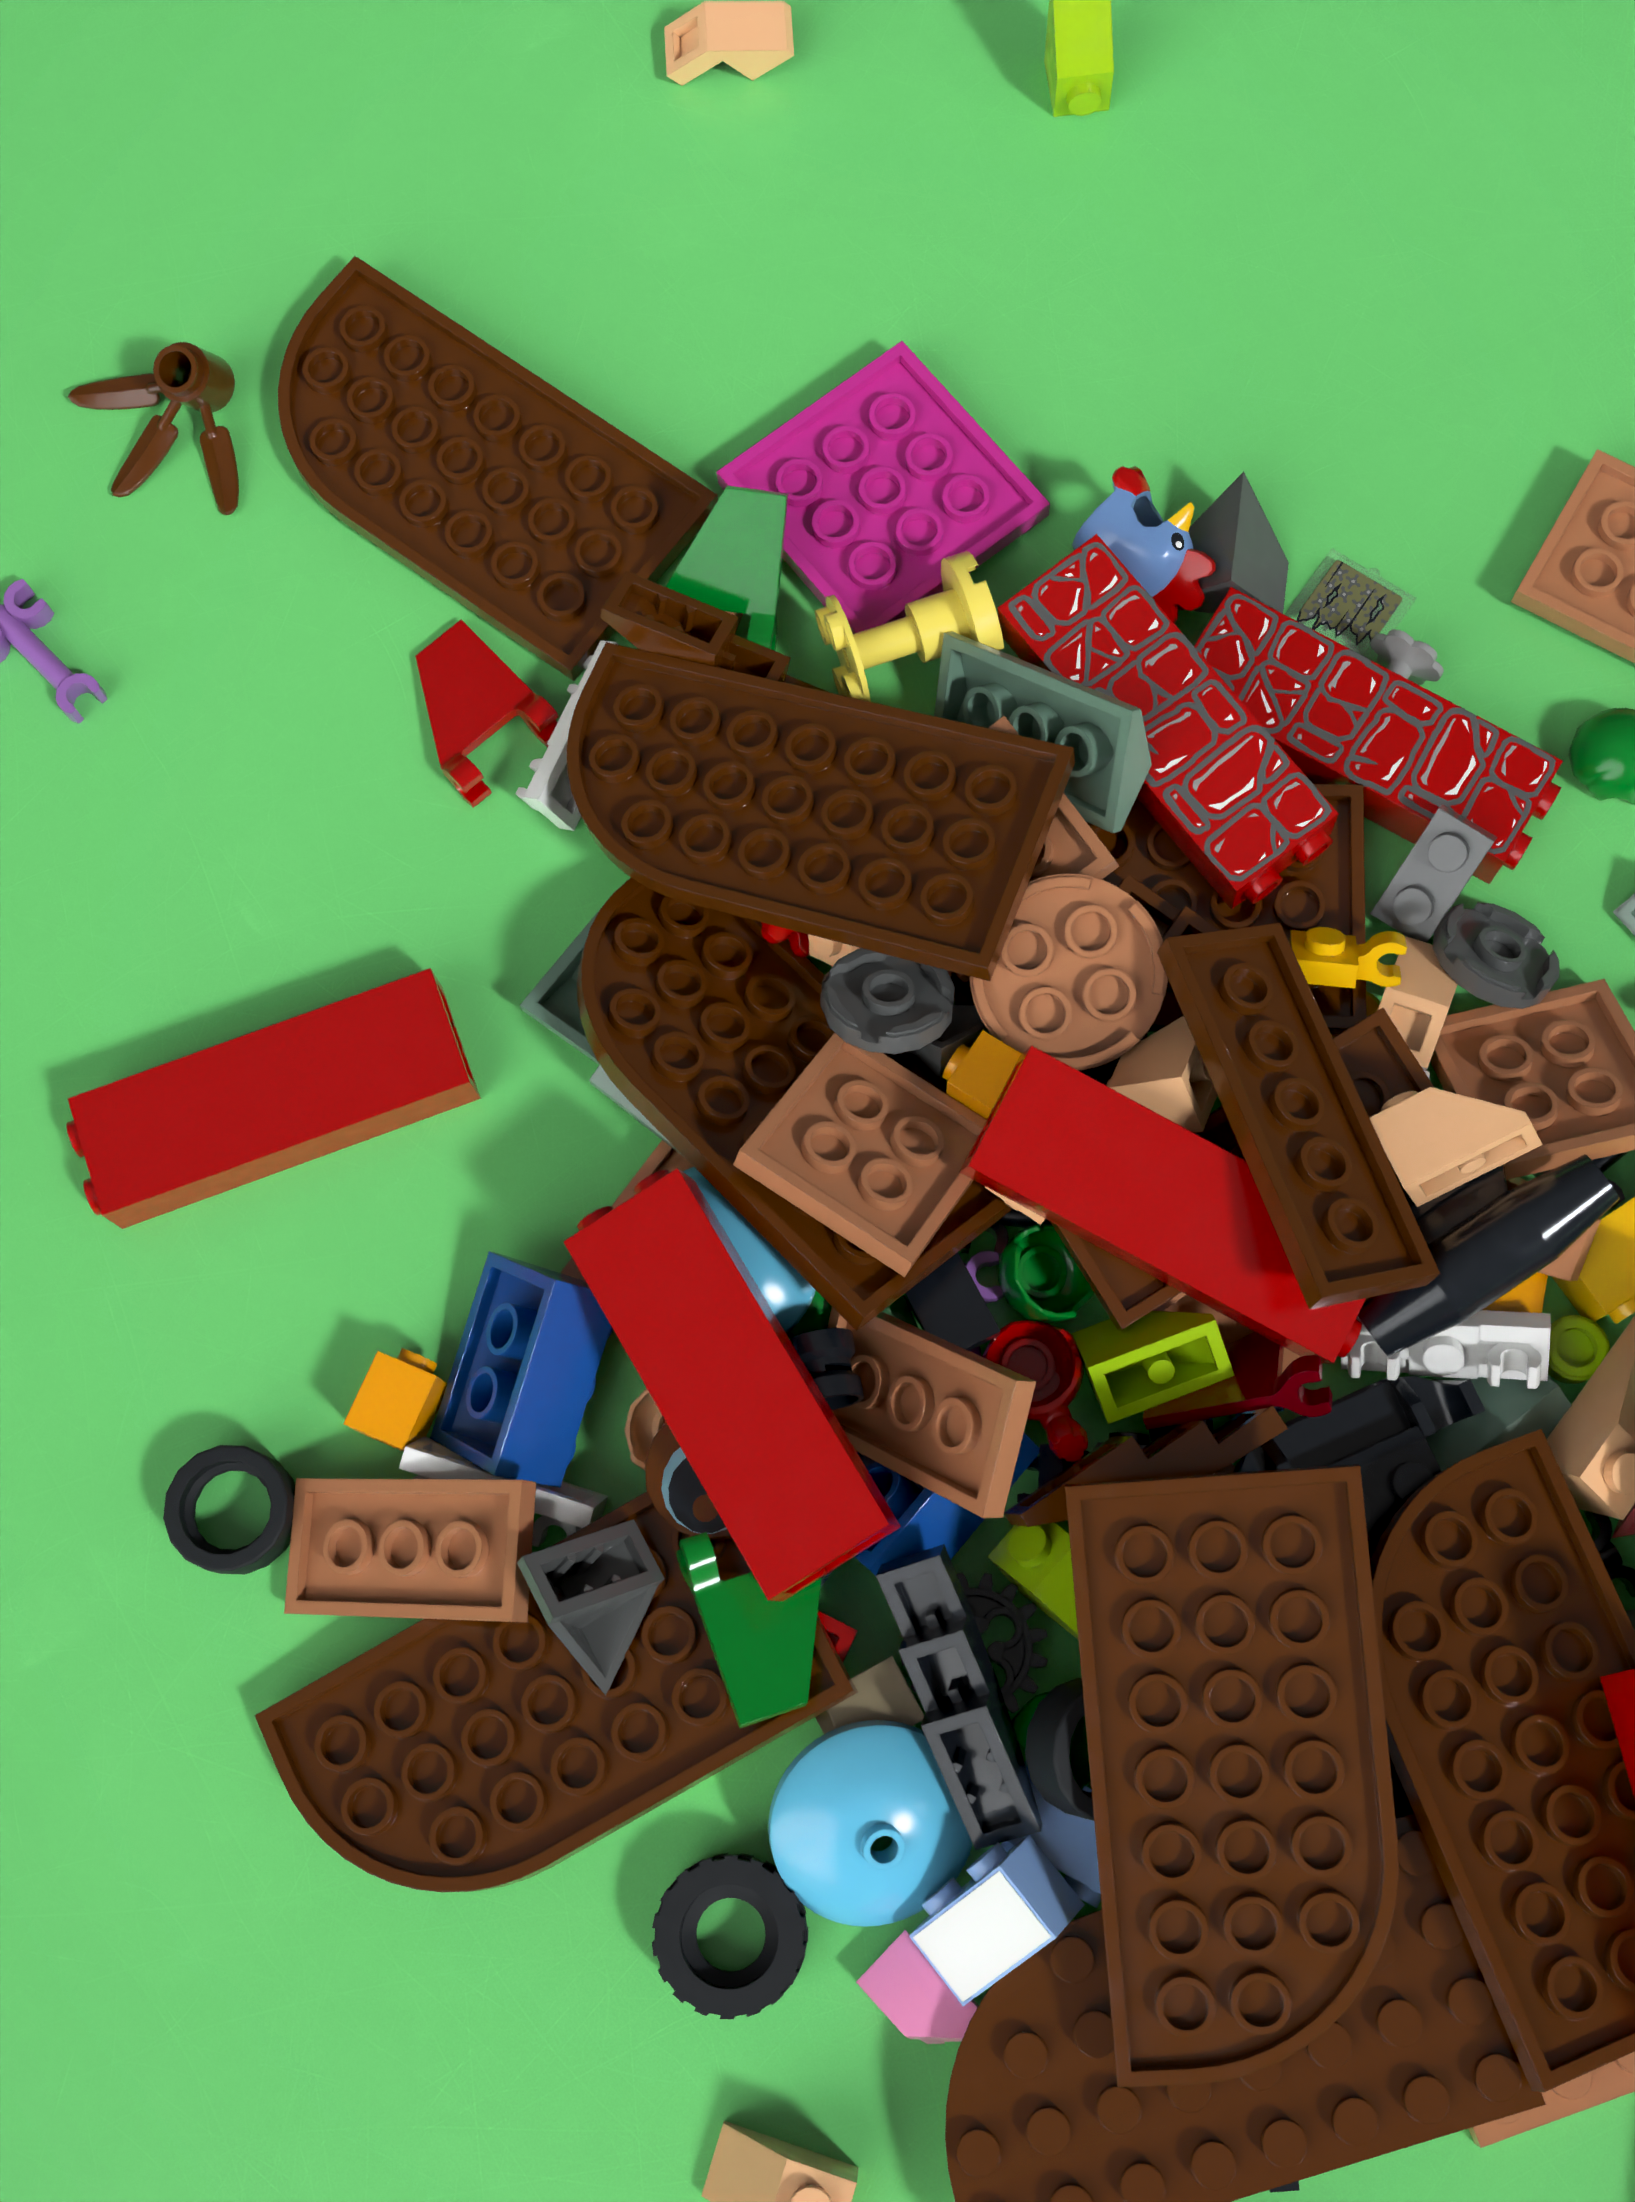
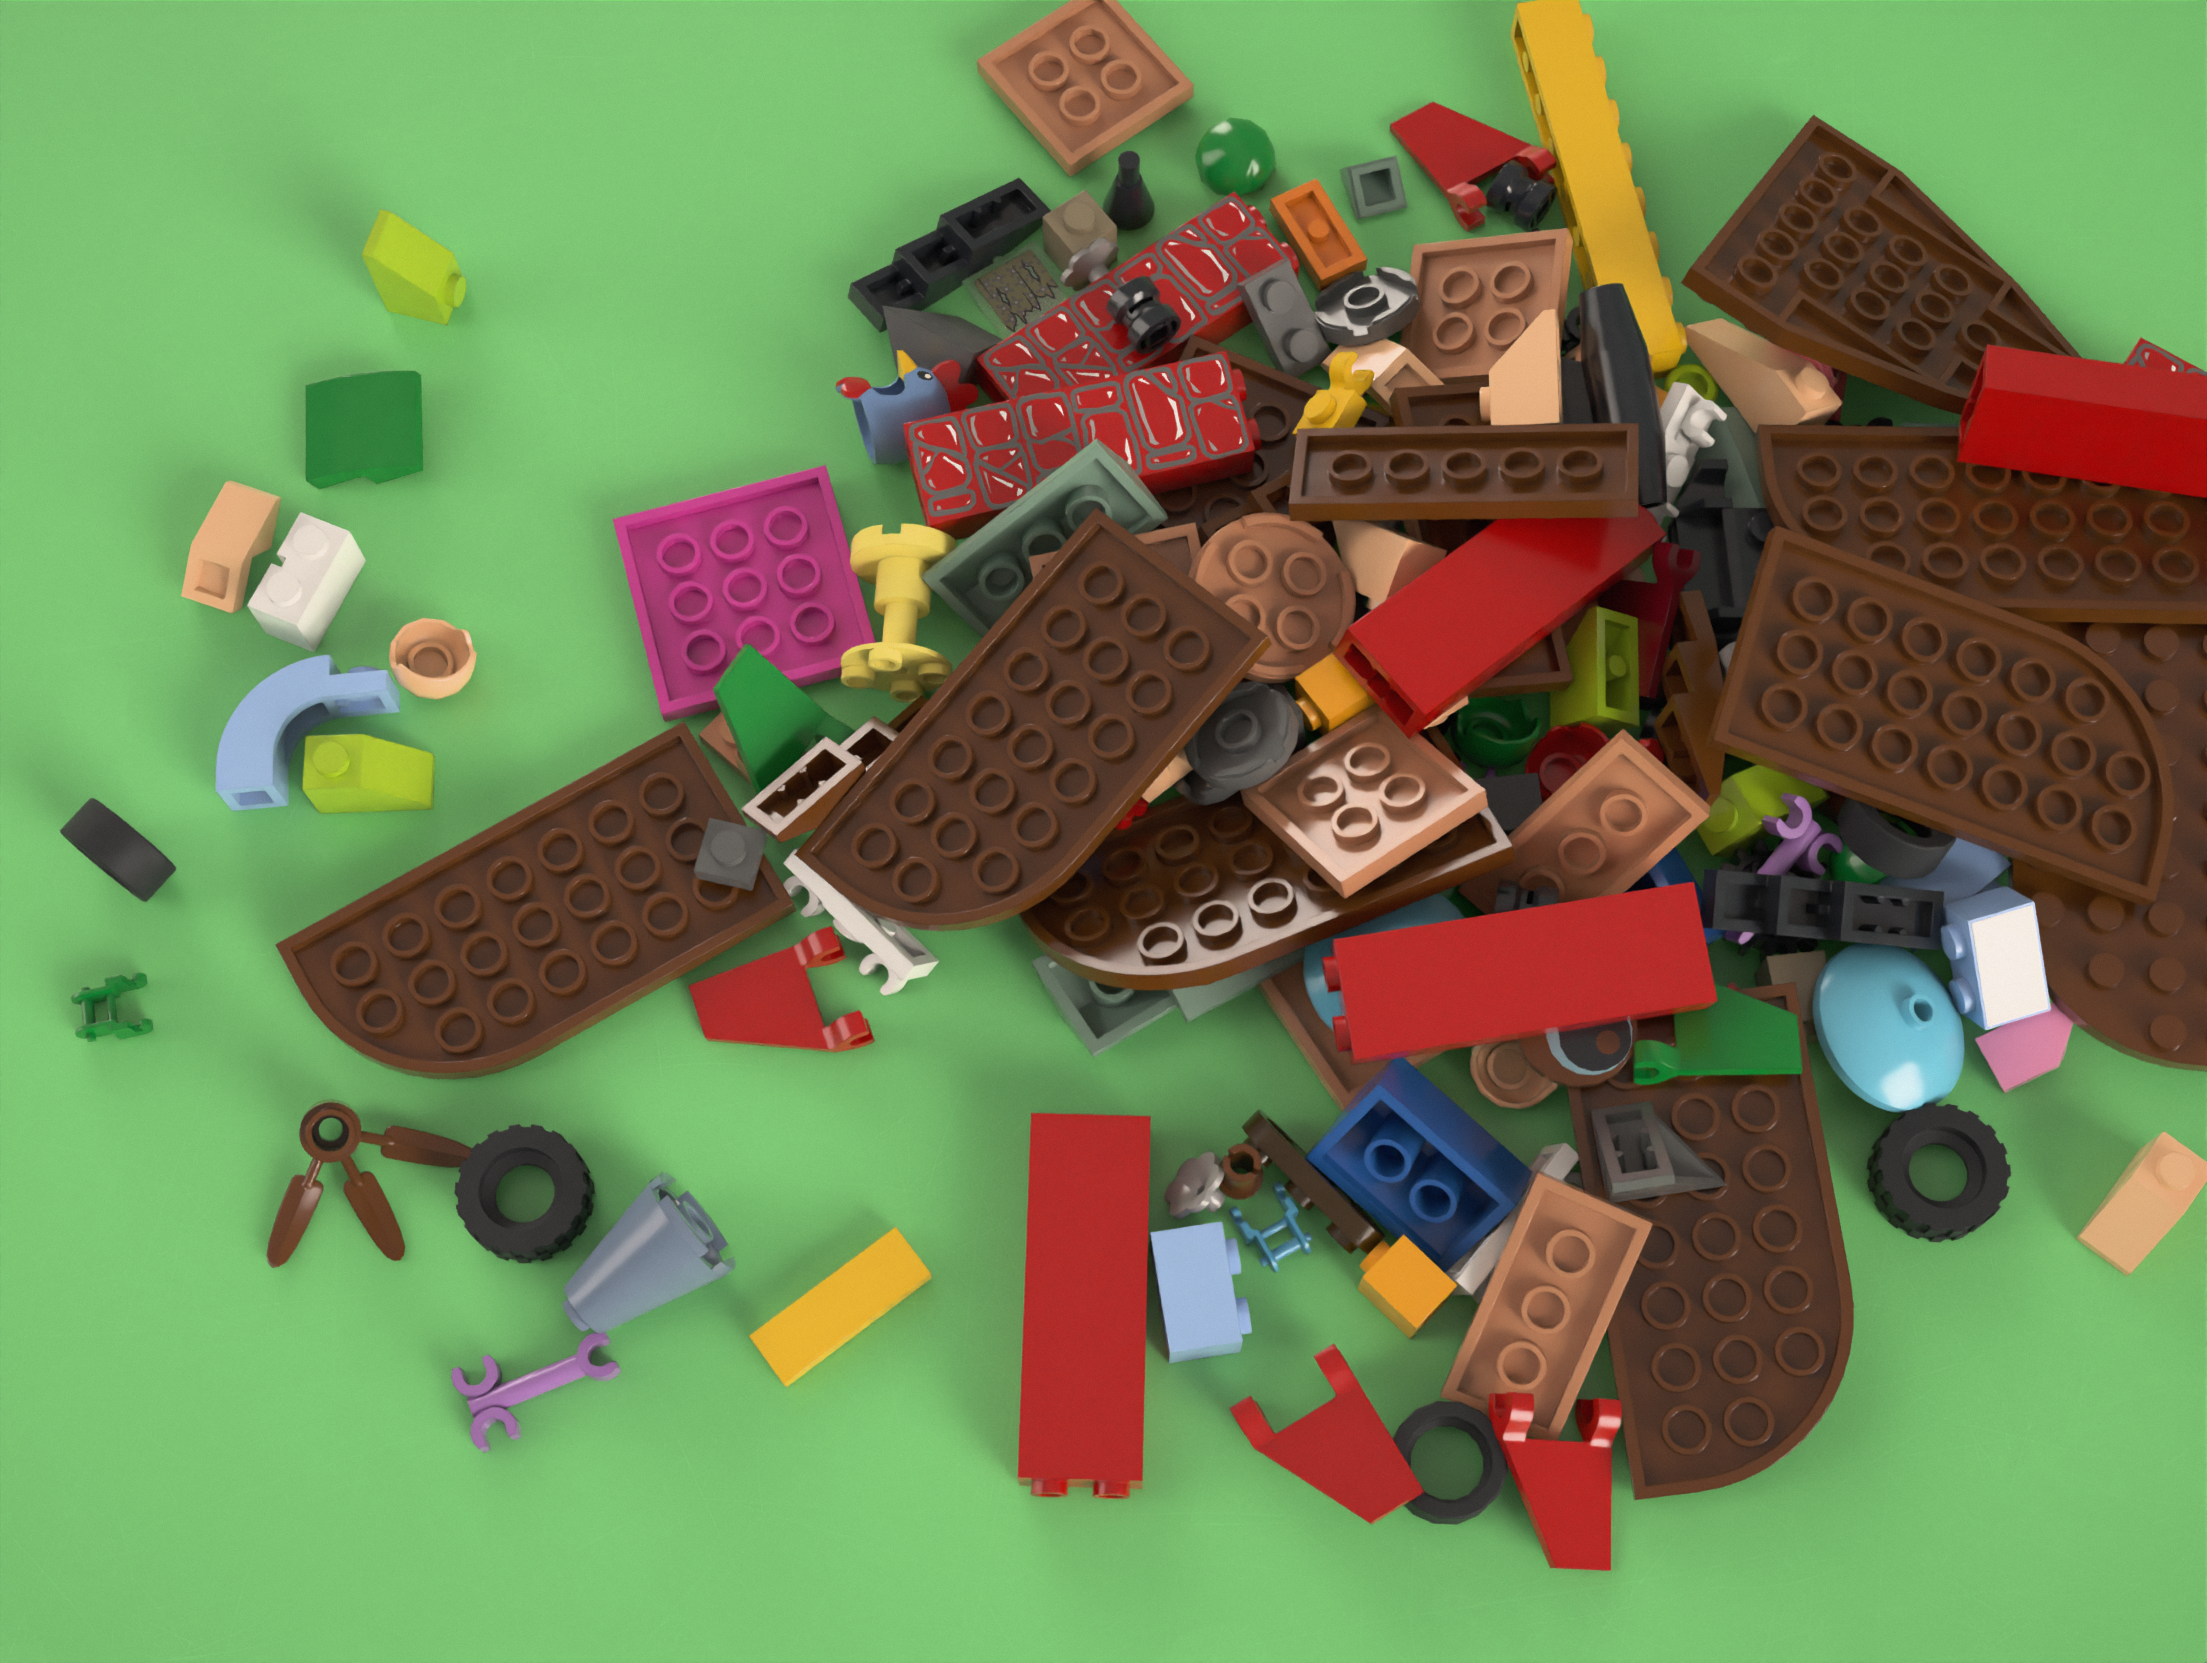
camera: 75 degrees left, 5 degrees down
(178, 694) = (647, 1260): none -> sand blue cone
(180, 529) = (497, 1157): none -> black tyre
(198, 883) = (840, 1307): none -> yellow tile
(206, 1391) = (1337, 1446): none -> red flag
(246, 1634) = (1563, 1482): none -> red flag
(269, 152) = (113, 988): none -> green piece
(318, 1201) = (1198, 1292): none -> light blue brick
(386, 86) = (118, 849): none -> black tyre
(387, 1259) = (1270, 1257): none -> dark azure piece
(427, 1160) = (1196, 1186): none -> light grey plant
(463, 1207) = (1241, 1185): none -> reddish brown pin
(495, 1225) = (1310, 1186): none -> dark brown plate
(550, 253) = (366, 775): none -> lime slope
(573, 155) = (279, 714): none -> light blue arch
(587, 587) = (730, 854): none -> dark grey plate
(688, 253) = (432, 658): none -> light nougat hair
(717, 118) = (310, 586): none -> white piece
(904, 93) = (364, 427): none -> green slope
(1037, 1640) = (1800, 845): none -> medium lavender bar
(1356, 715) = (1143, 314): none -> black wheel
(1365, 527) = (957, 249): none -> black slope
(1442, 623) = (1074, 228): none -> dark tan brick
(1507, 667) = (1128, 198): none -> black cone
(1567, 873) = (1317, 233): none -> orange plate

